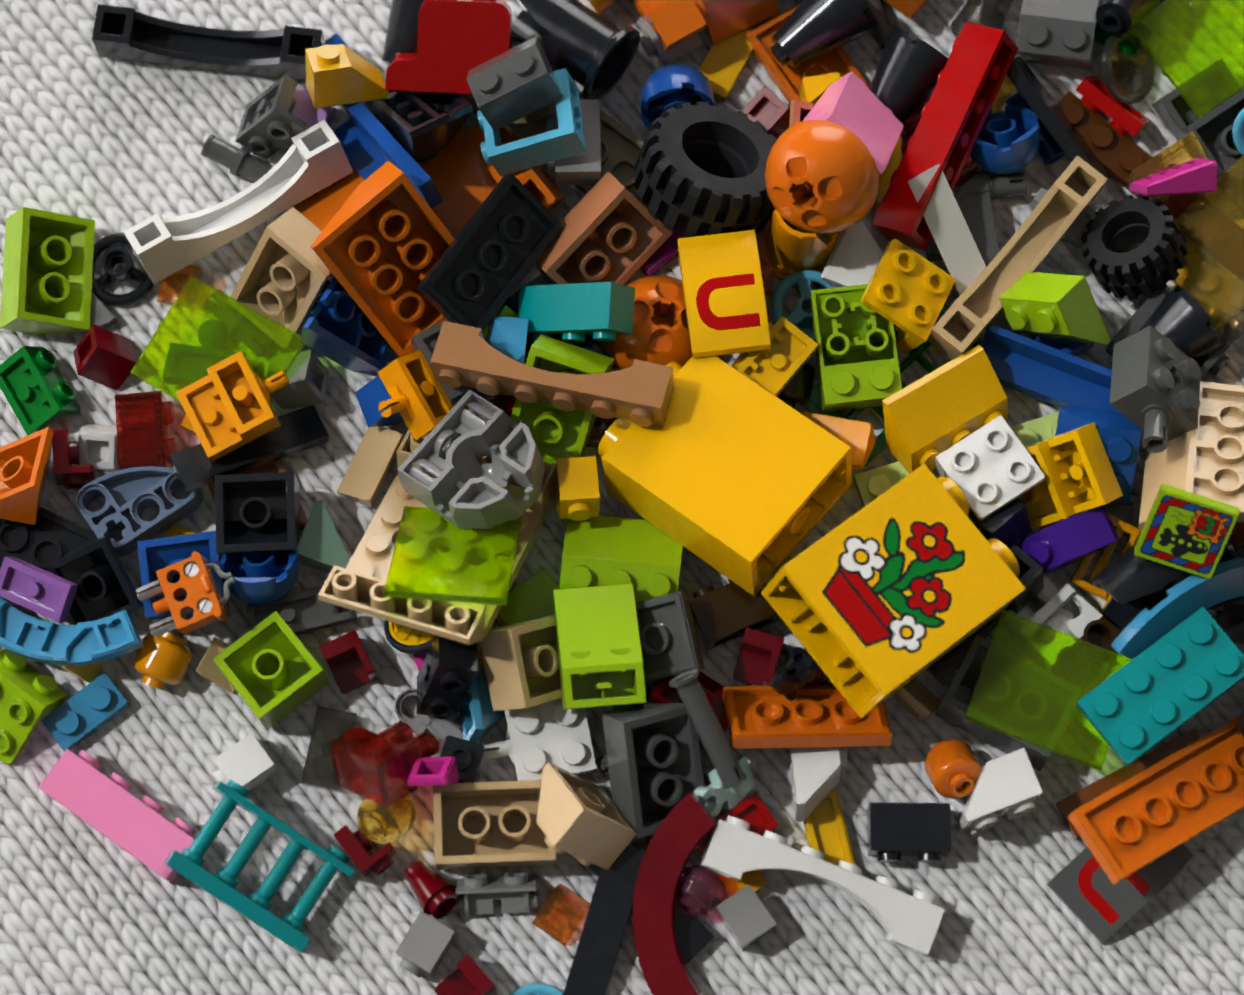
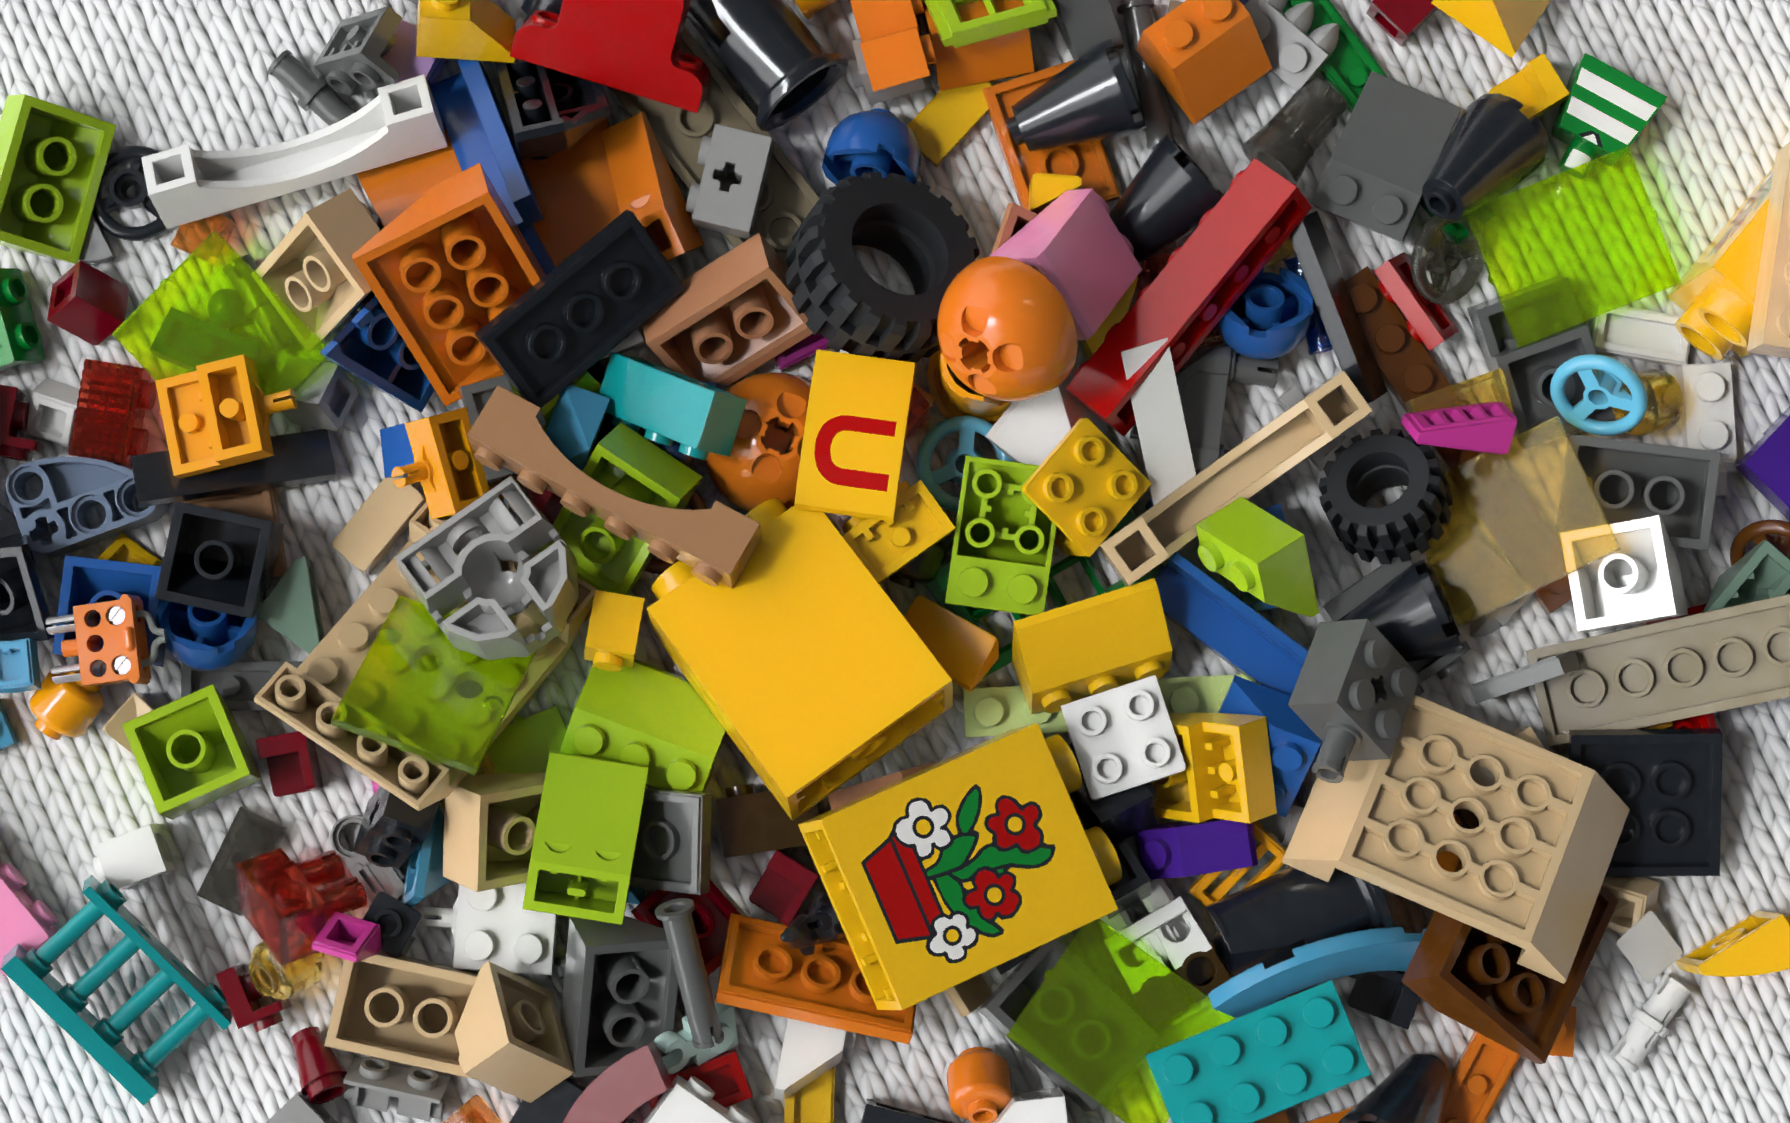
camera: 15 degrees right, 10 degrees up
(514, 84) = (662, 97): dark grey slope -> none
(543, 147) = (723, 158): medium azure window -> none
(768, 111) = (982, 204): panel -> none
(1186, 531) = (1334, 891): tile -> none

